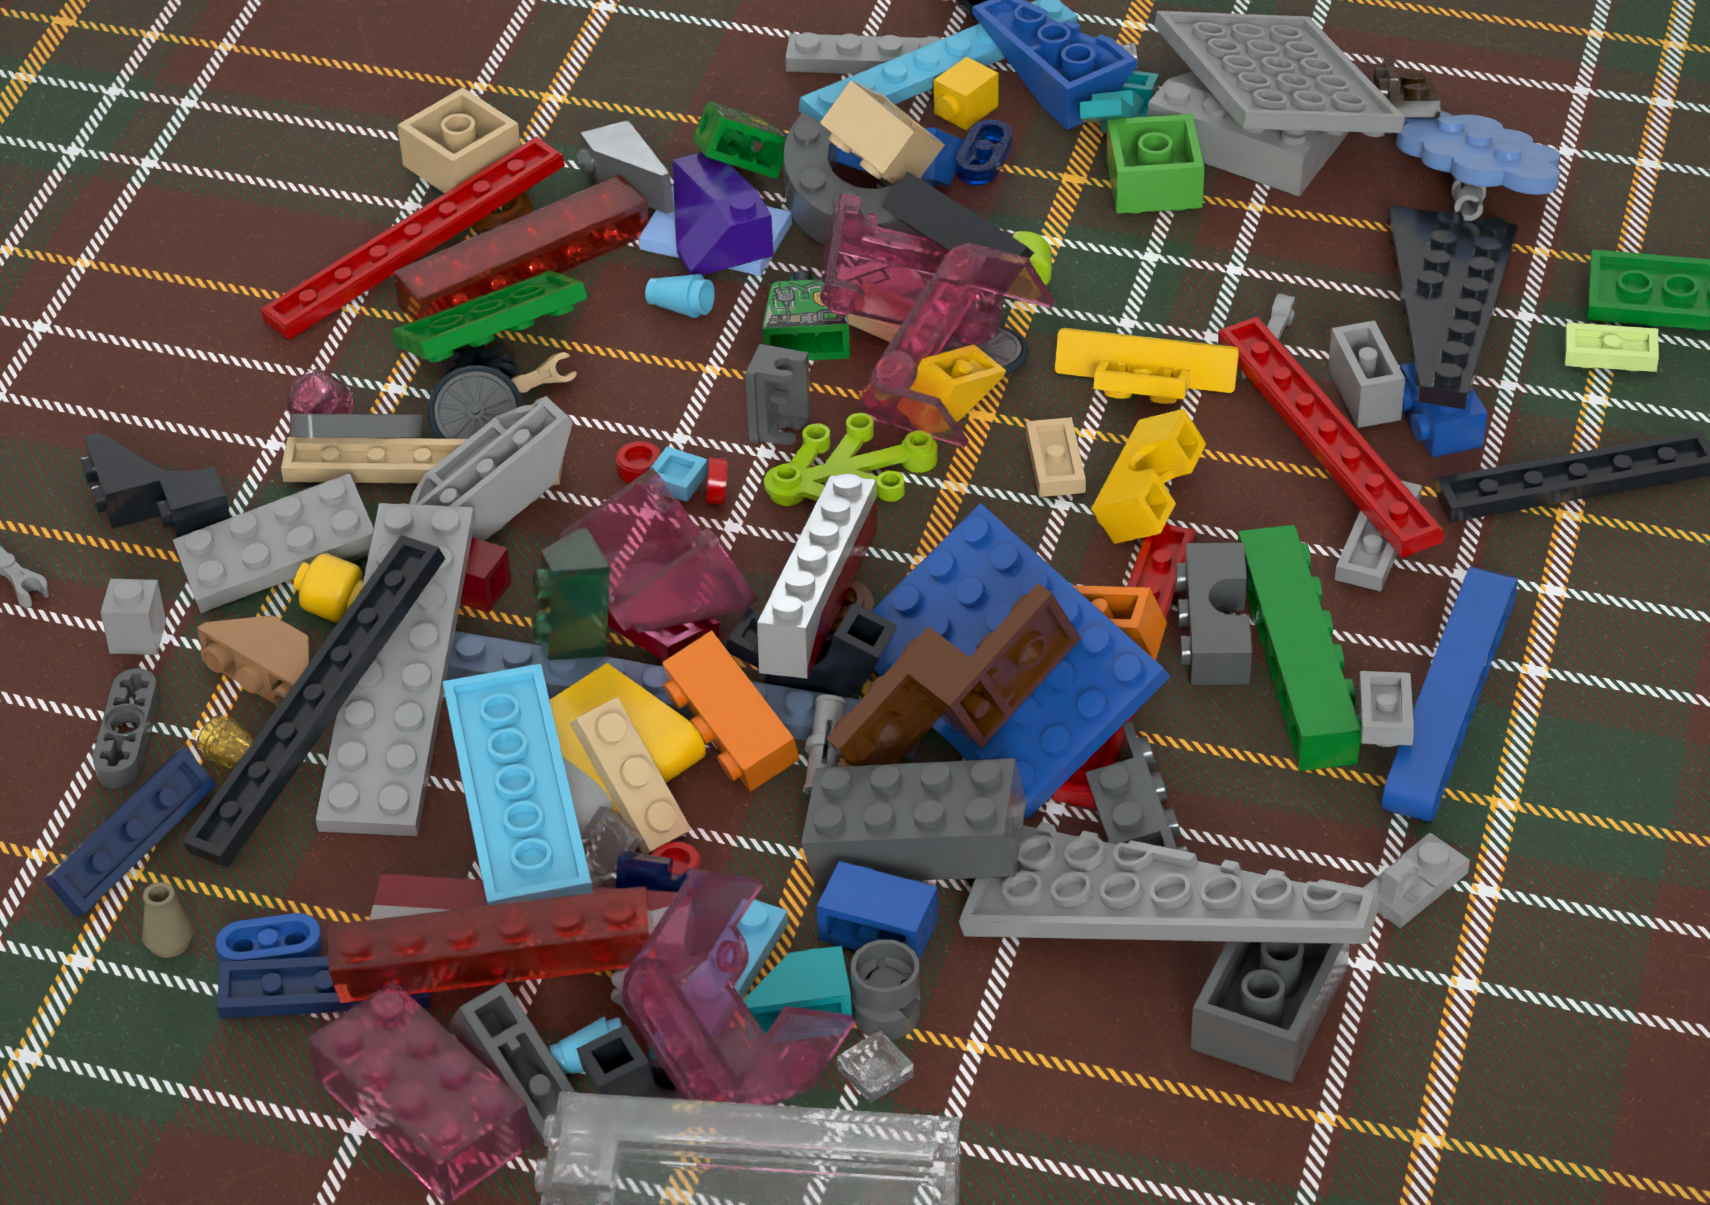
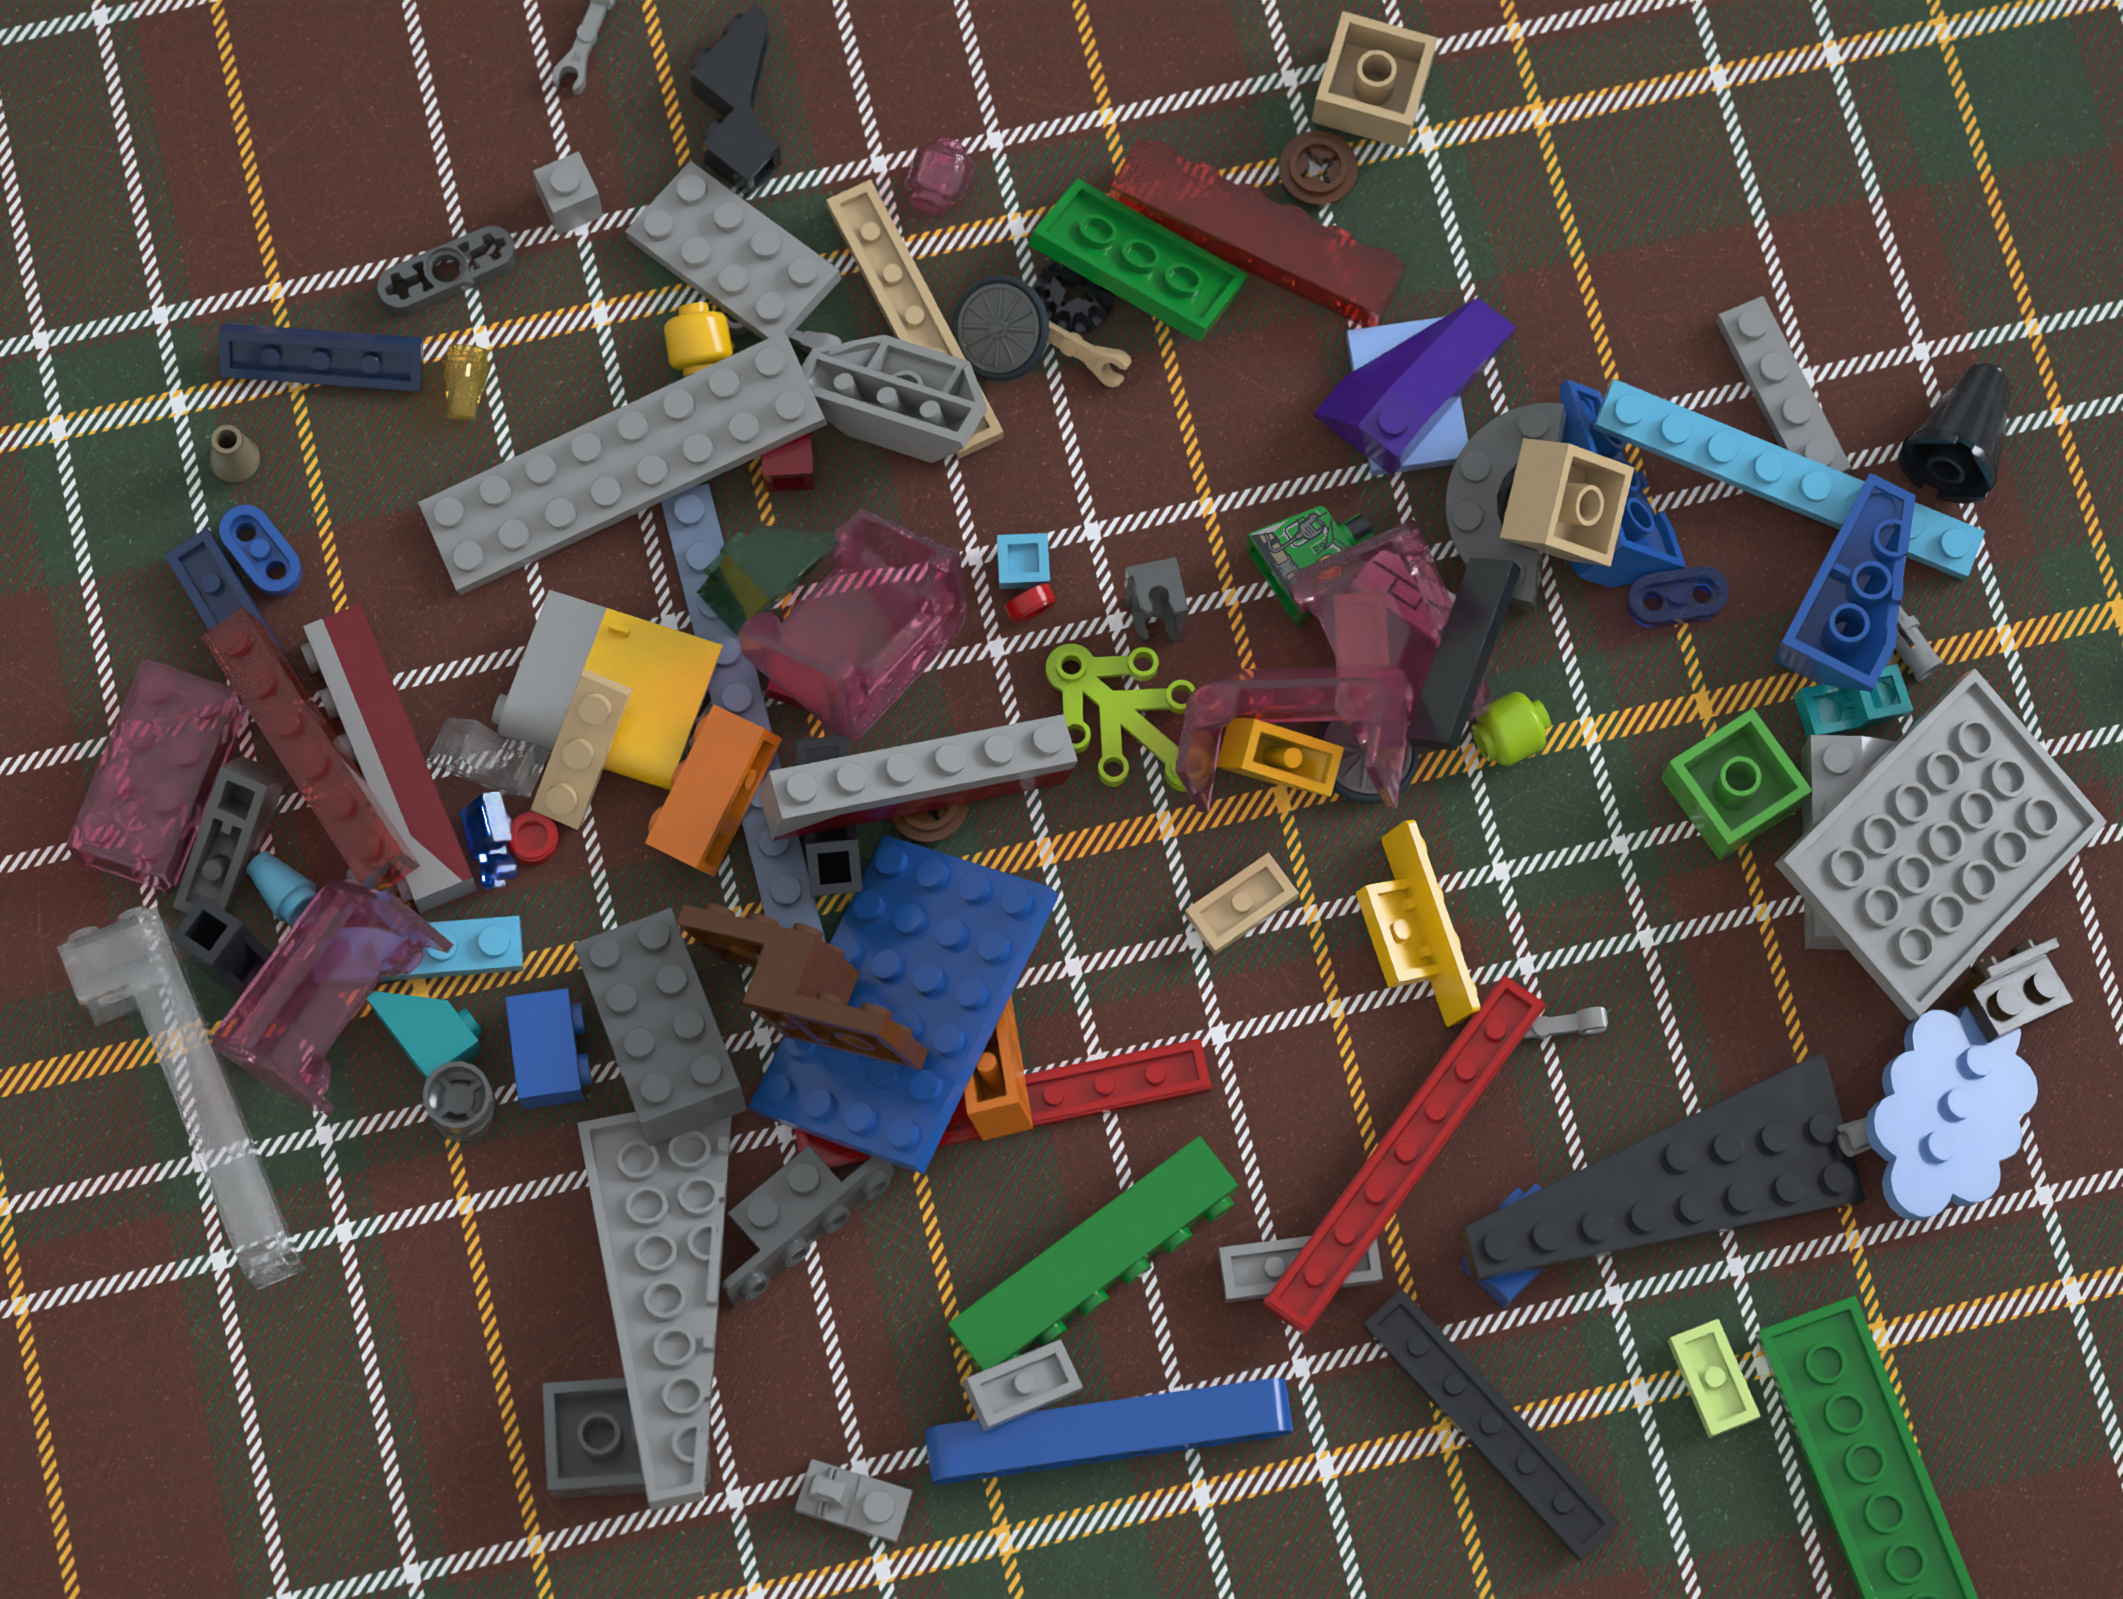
camera: 55 degrees right, 30 degrees up
(257, 653) = (579, 347): medium nougat slope -> none
(313, 701) = (527, 423): black plate -> none
(356, 425) = (935, 257): dark grey beam -> none
(411, 238) = (1221, 118): red tile -> none
(516, 786) = (501, 662): medium azure plate -> none
(623, 152) = (1444, 248): dark grey slope -> none
(635, 459) = (1029, 512): red tile -> none
(682, 294) = (1283, 421): medium azure cone -> none
(730, 137) = (1532, 347): green torso -> none
(827, 713) = (754, 880): light grey pin -> none
(875, 1066) = (382, 1135): clear plate -> none
(966, 93) = (1758, 529): yellow brick -> none
(1111, 106) = (1787, 703): teal slope -> none
(1134, 495) = (1282, 998): yellow arch -> none
(1216, 642) = (1127, 1136): dark grey arch -> none
(1366, 374) = (1513, 1152): light grey brick -> none

